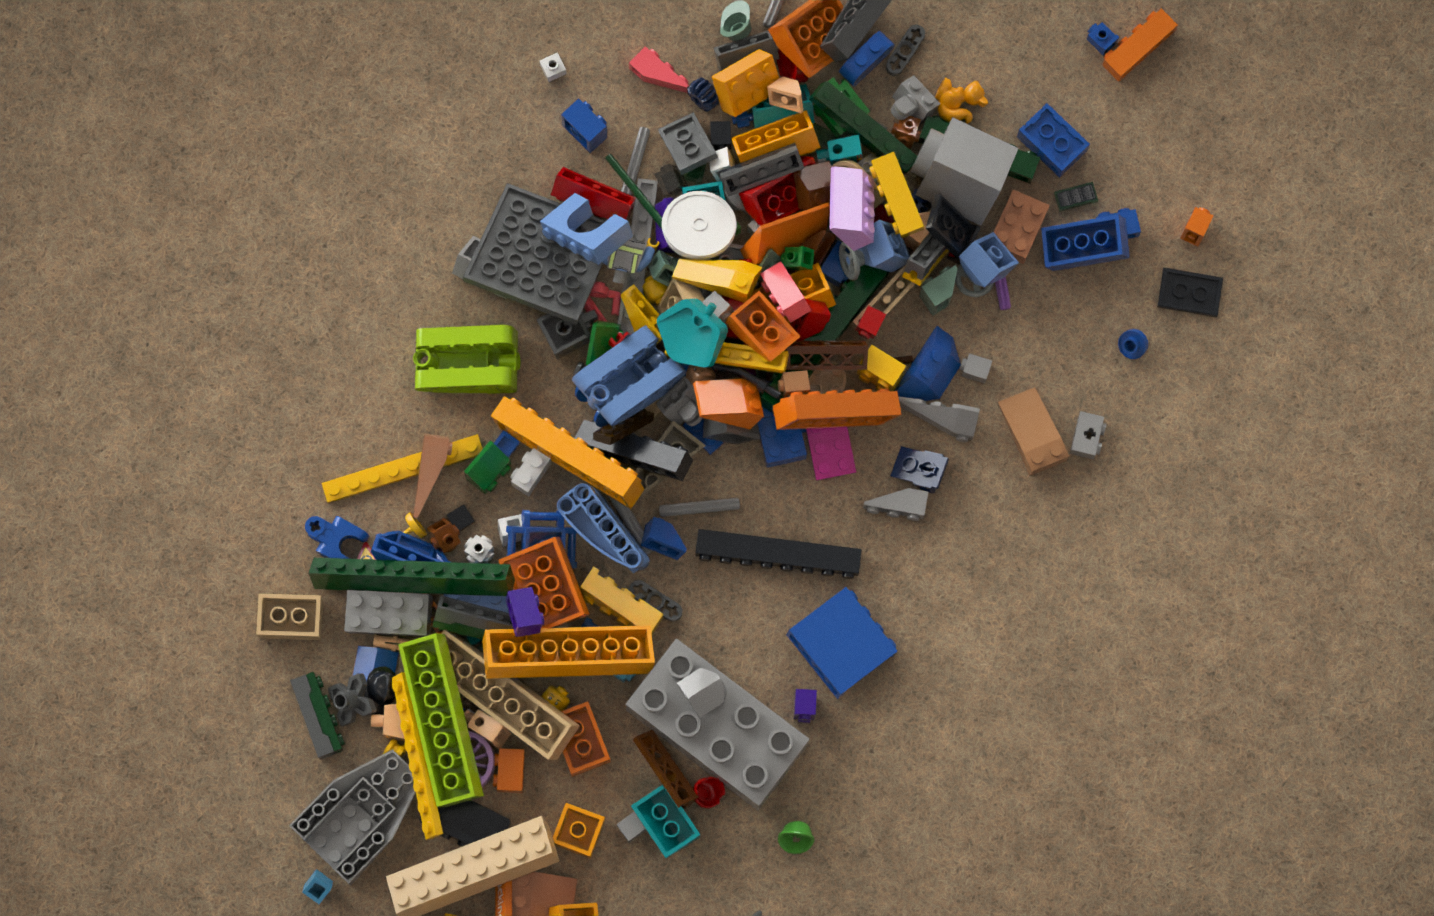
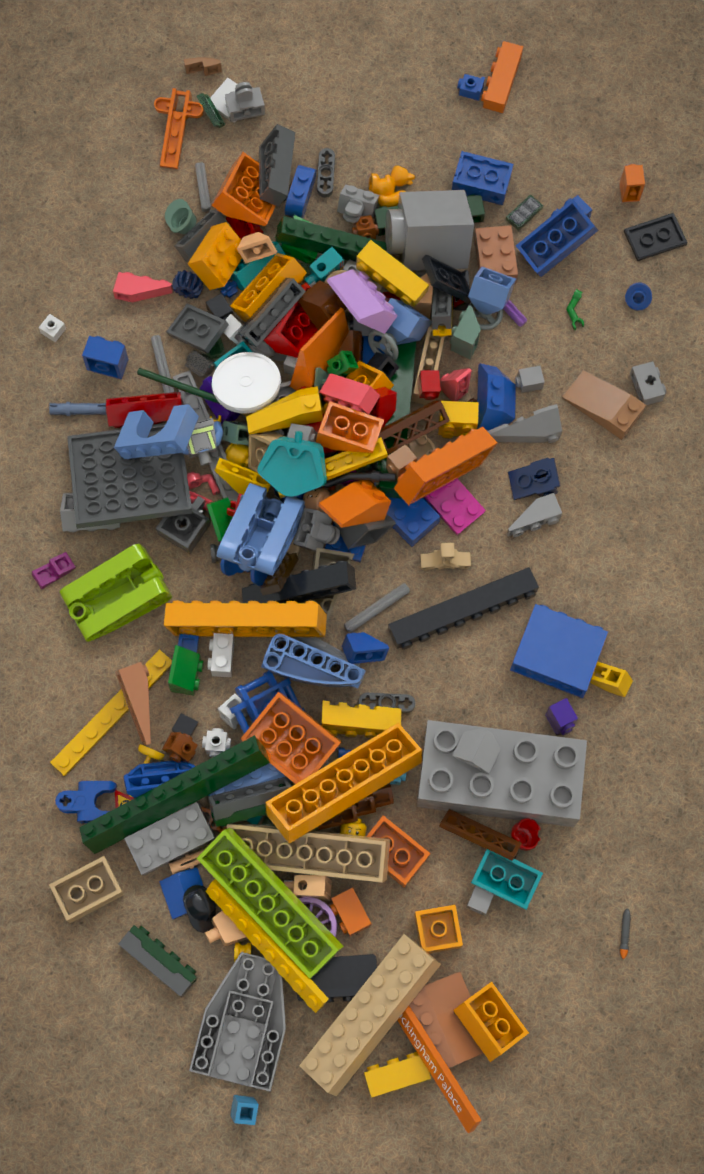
camera: 30 degrees left, 5 degrees down
(350, 699) = (180, 930): dark grey plant -> none
(423, 305) = (54, 570): none -> magenta slope
(524, 611) = (290, 768): dark purple brick -> none
(531, 160) = (77, 408): none -> sand blue pin
(580, 684) = (365, 806): none -> reddish brown slope
(790, 497) = (445, 558): none -> tan piece
(800, 830) = (623, 823): bright green helmet -> none
(837, 280) = (383, 363): none -> black brick
(874, 696) = (611, 679): none -> yellow slope
(899, 334) = (456, 383): none -> coral slope
(1072, 311) = (570, 309): none -> green arm

